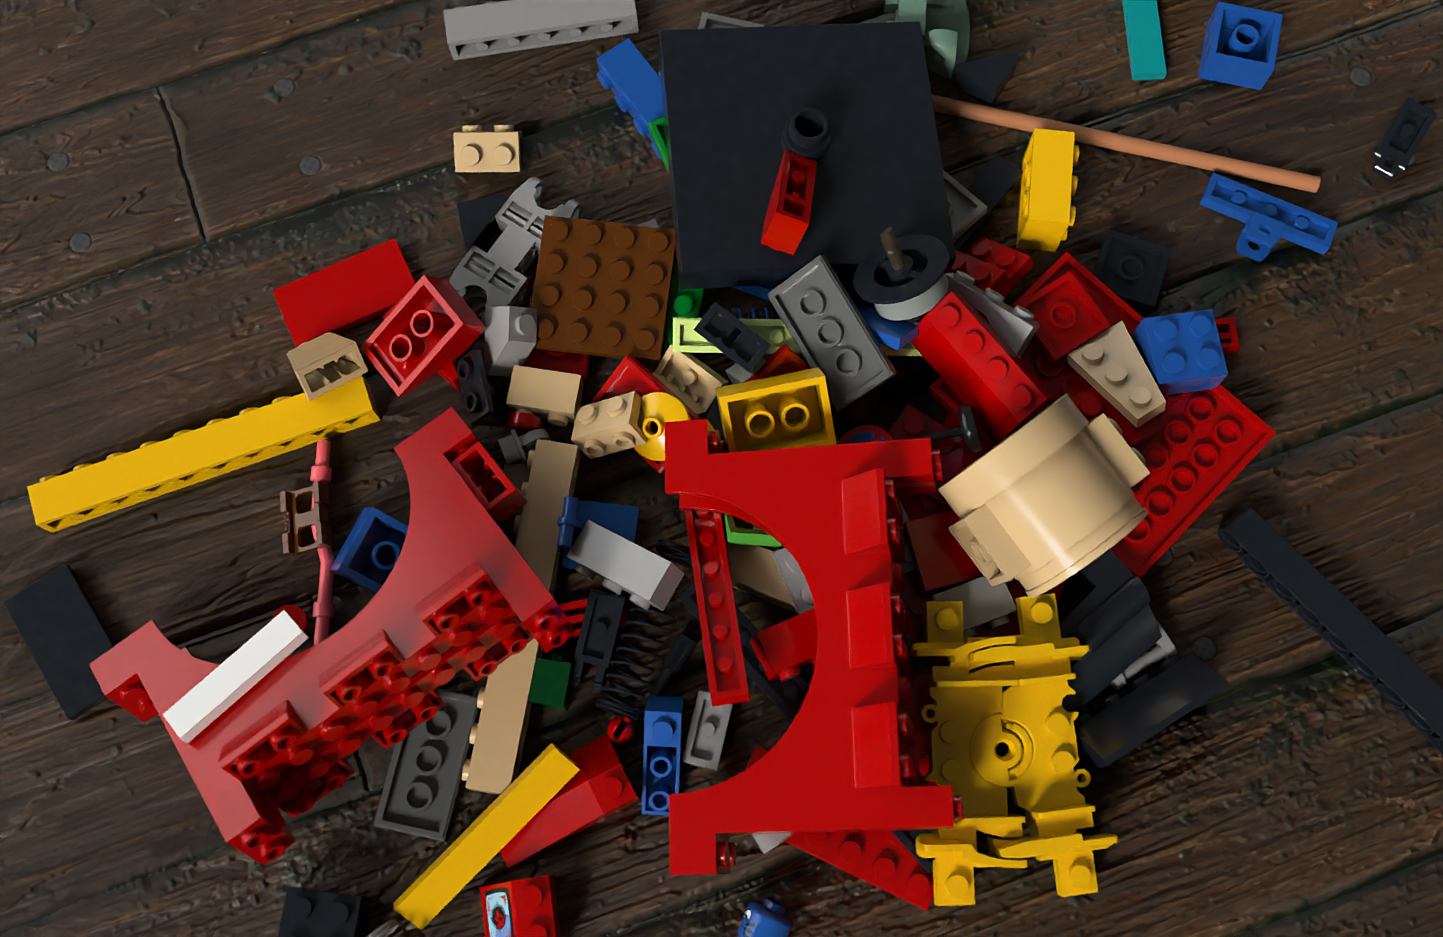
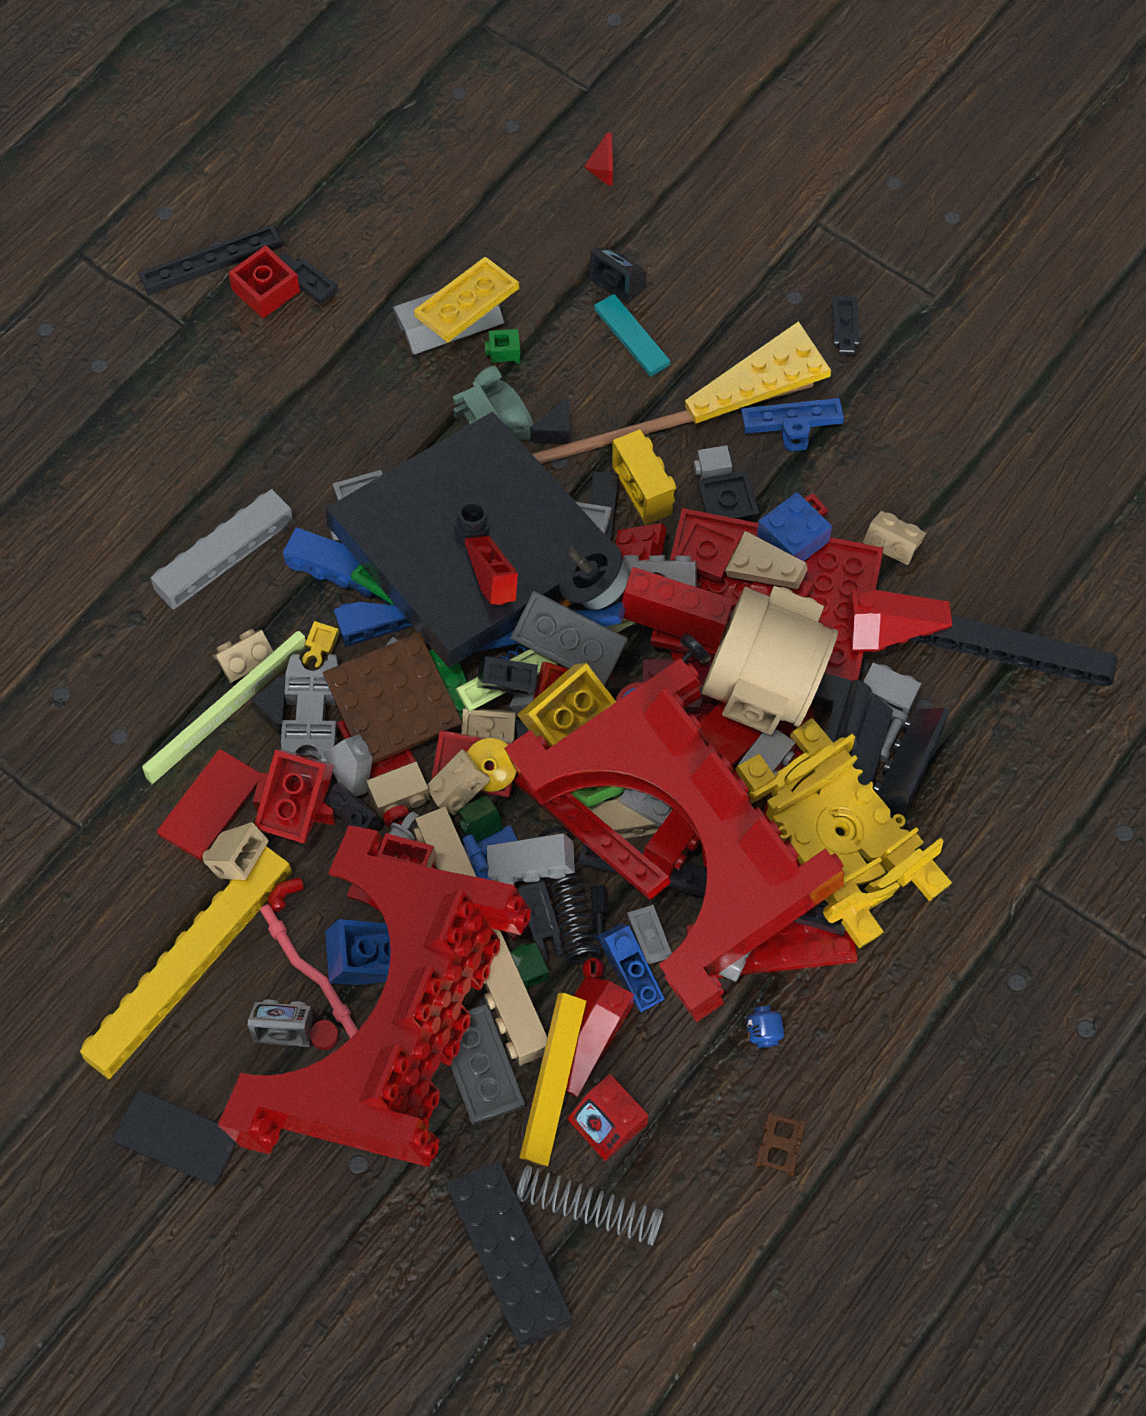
camera: 35 degrees left, 10 degrees down
(235, 676) = (334, 1058): white tile -> none
(247, 581) = (280, 1023): none -> light grey slope
(297, 521) = (283, 969): reddish brown piece -> none
(353, 433) = (280, 891): none -> red arm
(427, 195) = (223, 708): none -> yellowish green tile
(576, 180) = (320, 641): none -> yellow plate
(607, 481) = (479, 819): none -> dark green brick
(634, 184) = (368, 621): none -> blue slope
(1138, 218) = (712, 462): none -> light grey brick
(1178, 607) = (892, 687): none -> light grey brick
(1228, 525) = (889, 618): none -> red wedge
(1240, 46) = (706, 318): blue brick -> none
(1283, 147) = (773, 369): none -> yellow wing
(1299, 425) = (894, 536): none -> tan bracket

